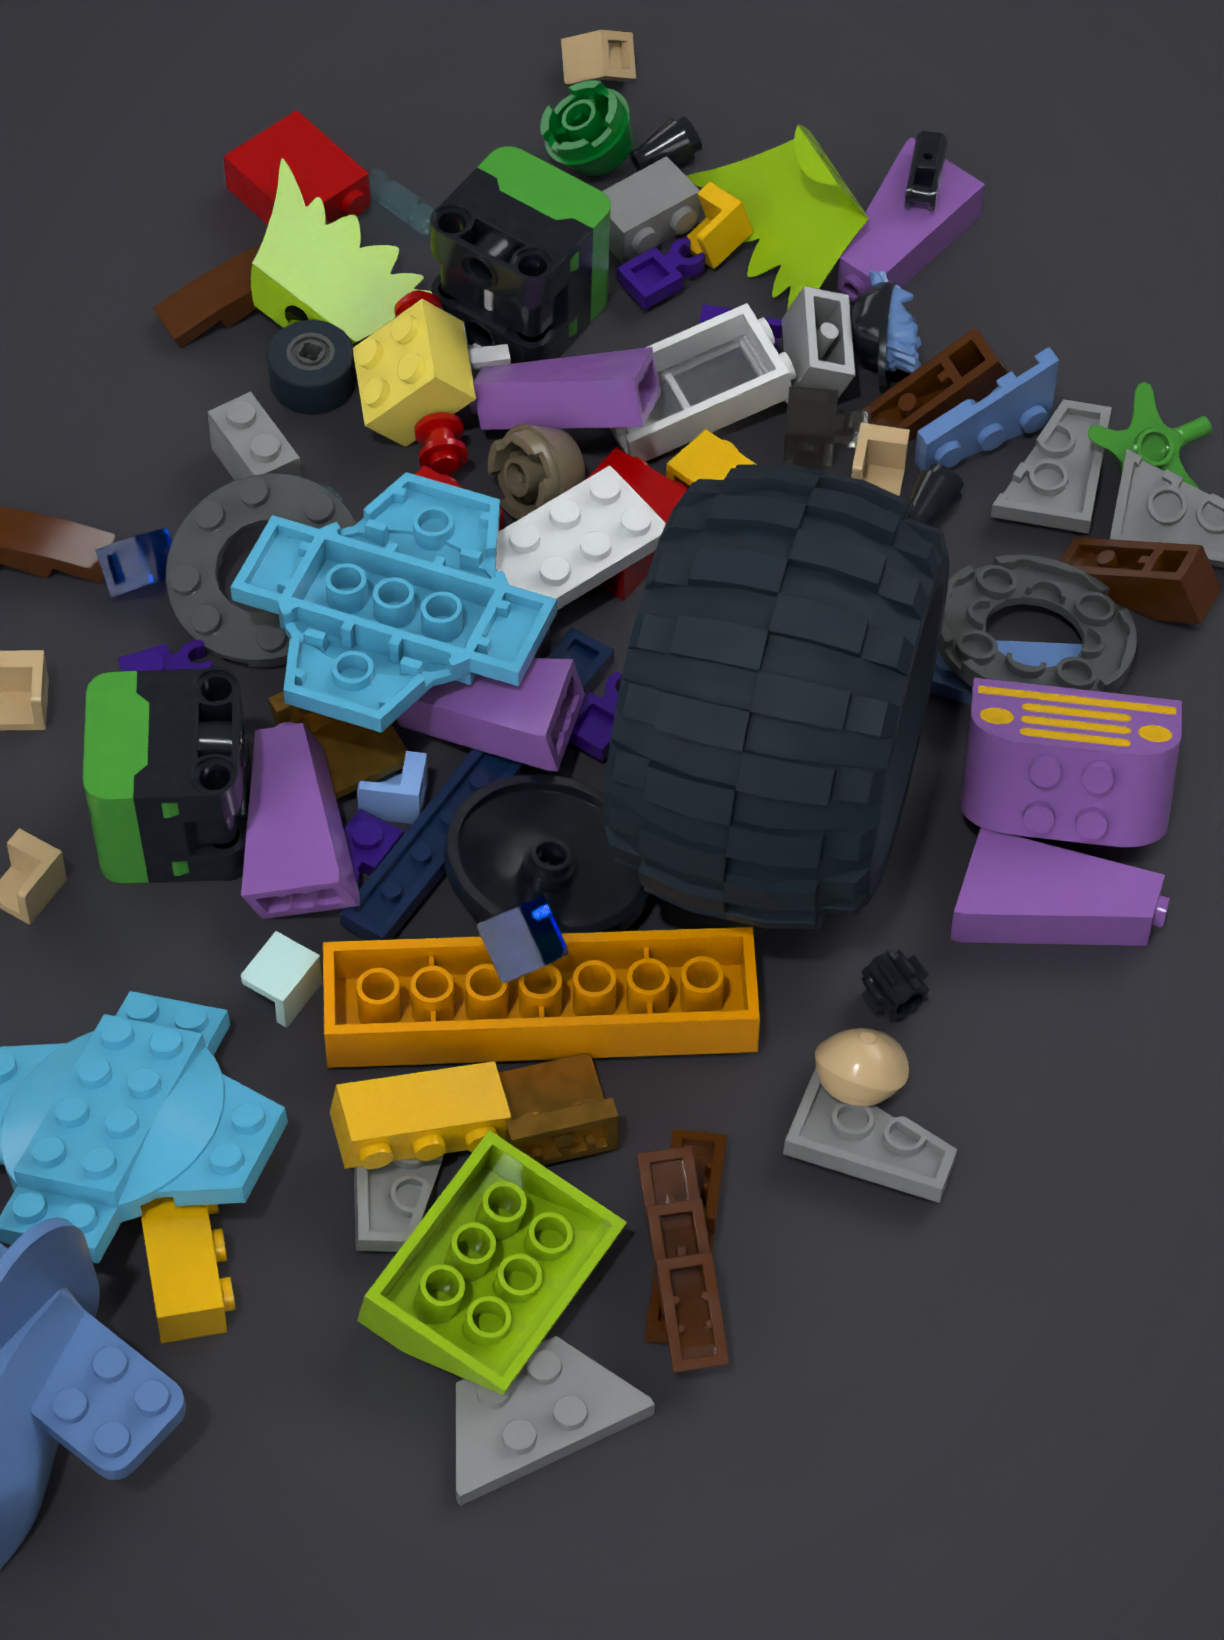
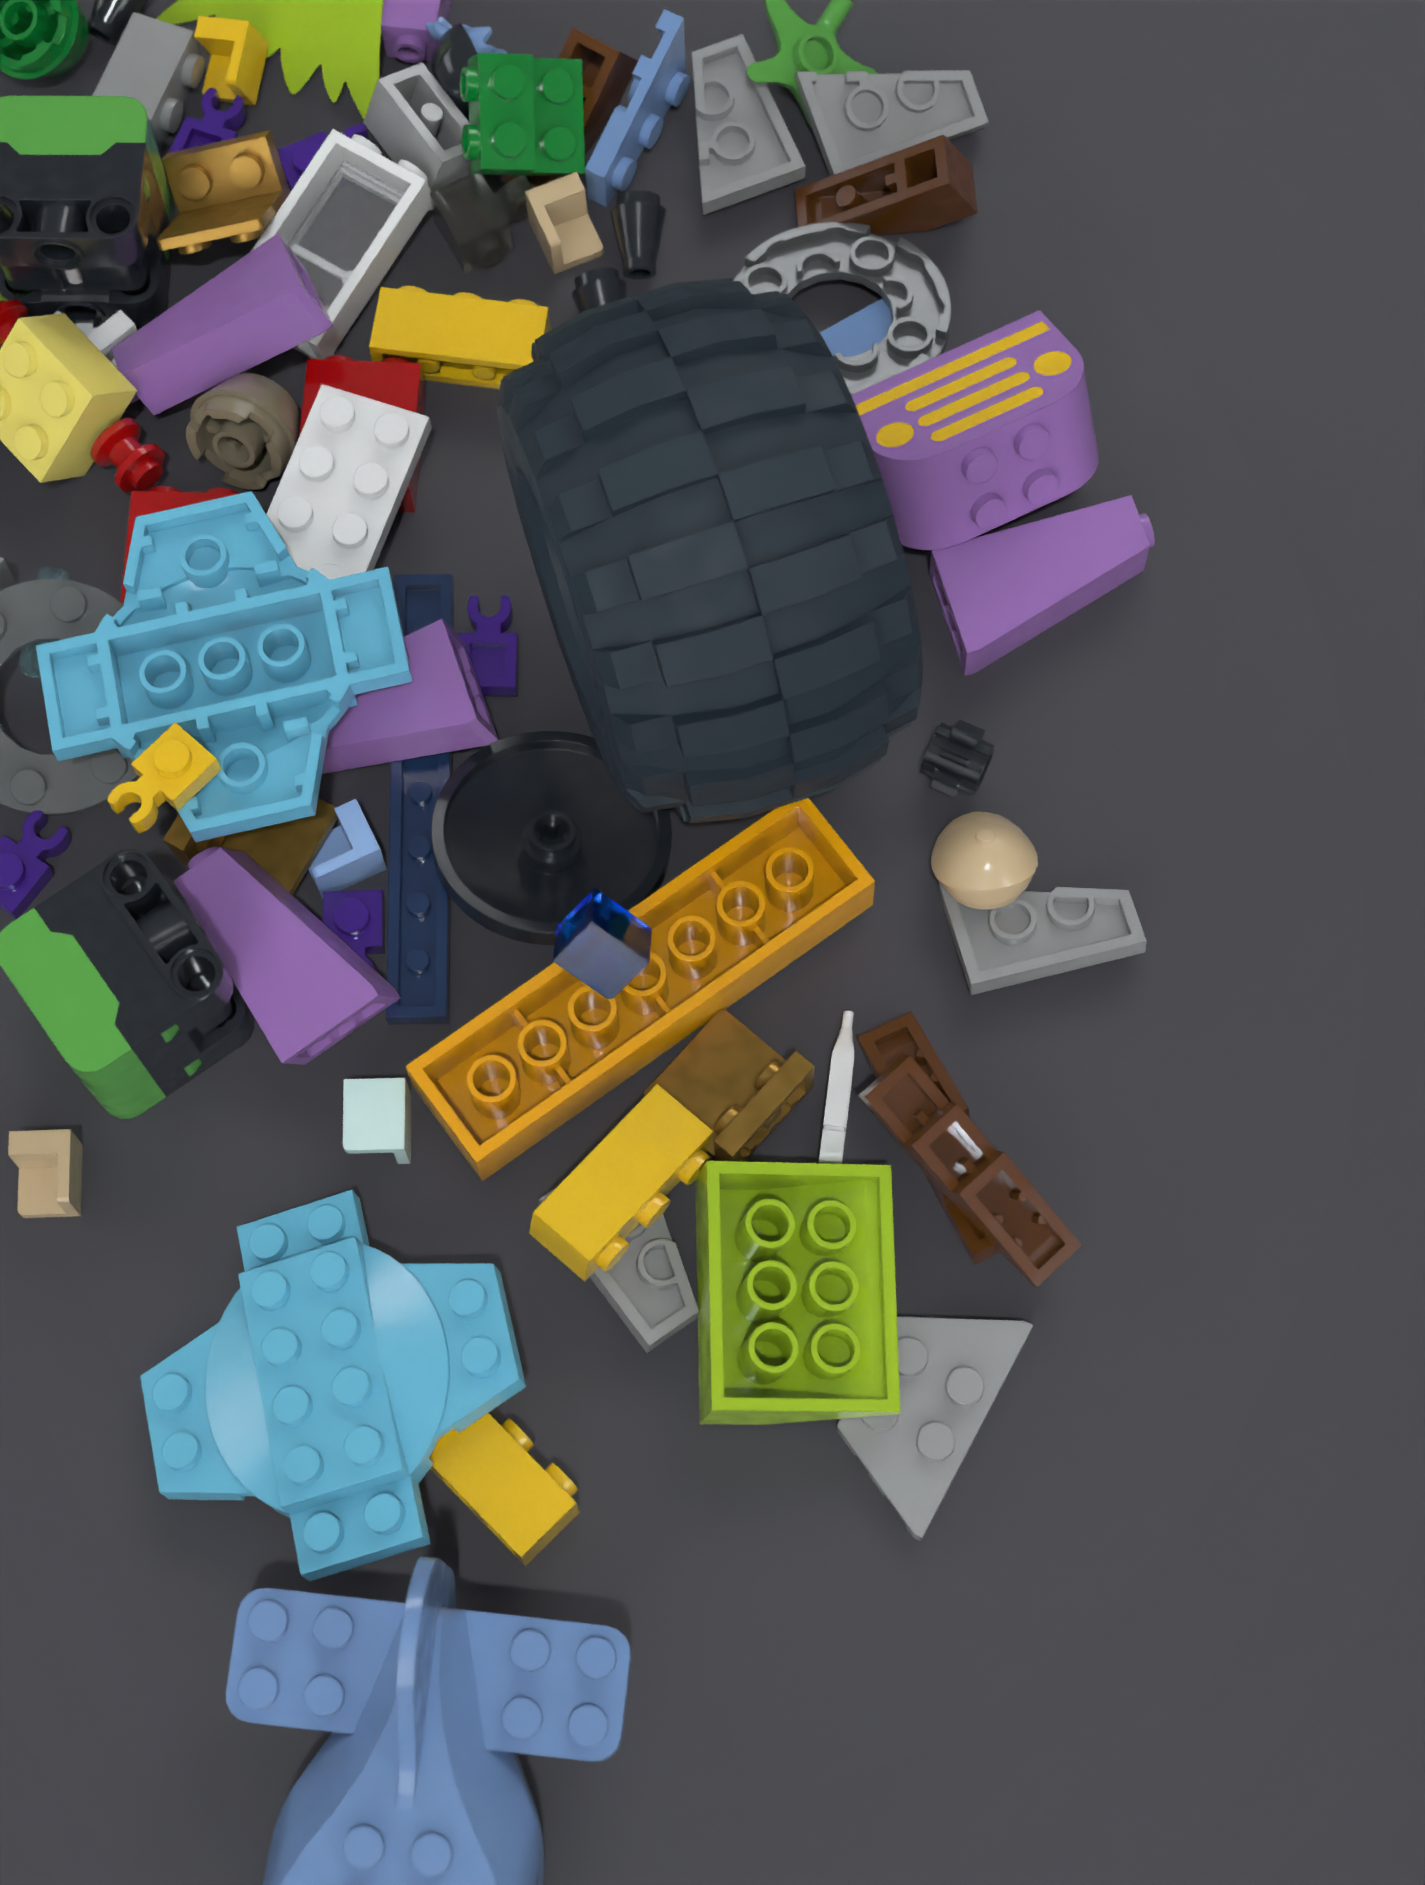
camera: 30 degrees left, 15 degrees up
(298, 642) = (169, 771): none -> yellow plate
(623, 1168) = (838, 1094): none -> white piece
(641, 305) = (223, 191): none -> pearl gold bracket
(894, 367) = (523, 115): none -> green plate

